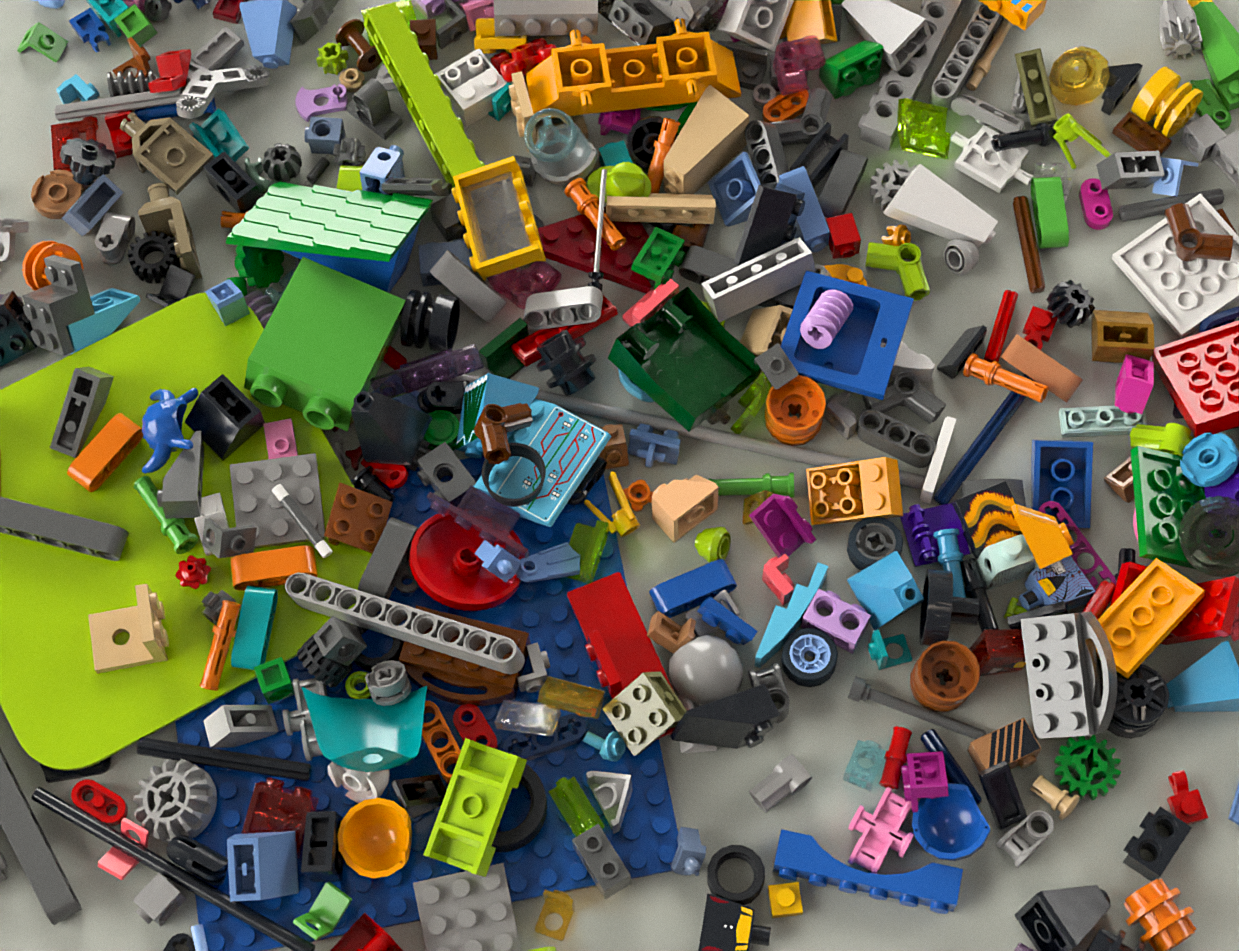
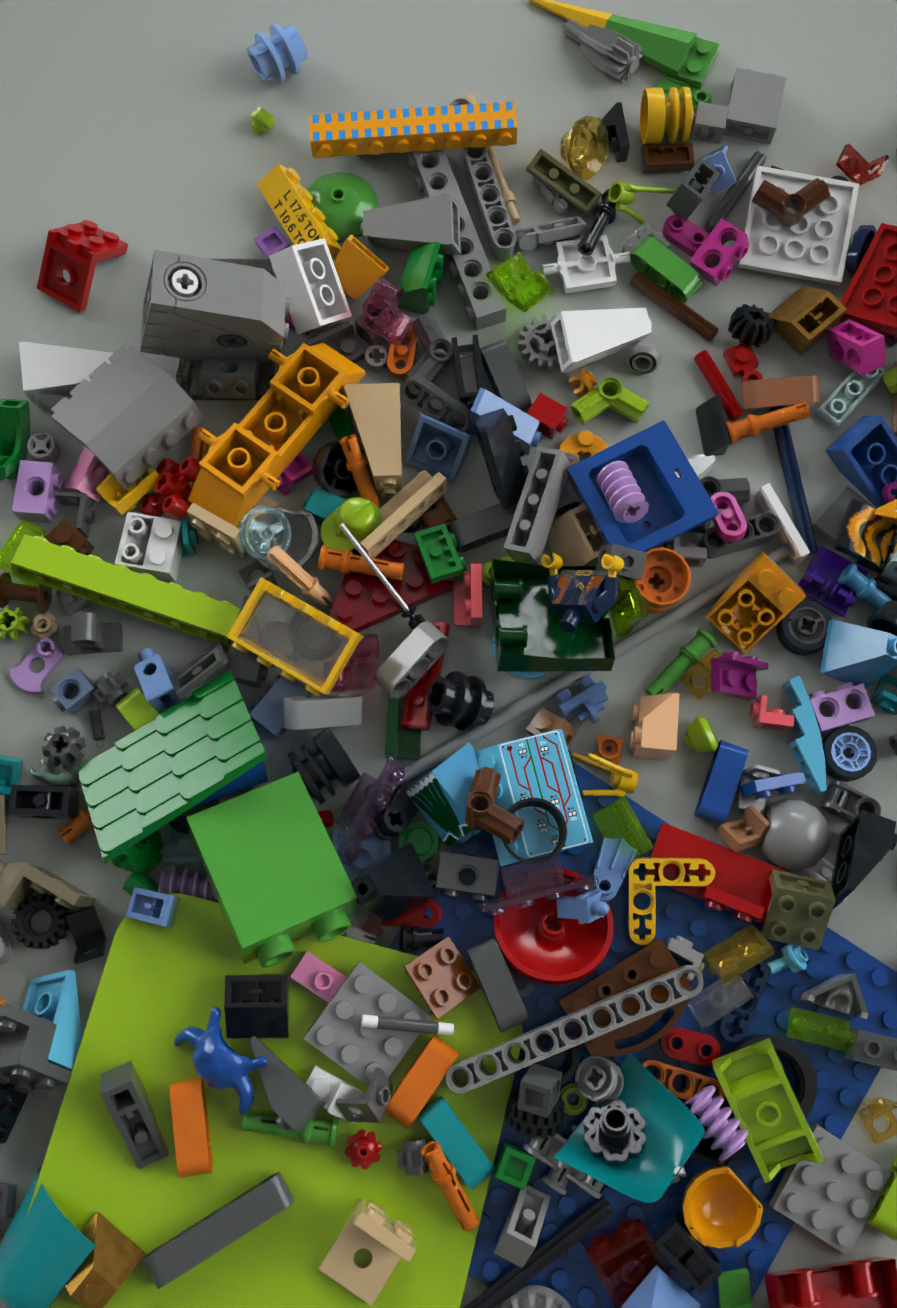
camera: 50 degrees left, 10 degrees up
(358, 715) = (614, 1133): none -> black plant
(427, 775) = (717, 1122): none -> lavender piece
(546, 185) = (308, 584): none -> light nougat axle
(561, 601) = (648, 886): none -> yellow beam
(722, 359) = (582, 594): none -> torso
(893, 410) = (730, 518): none -> dark pink plate
(1102, 232) = (714, 251): none -> dark pink brick

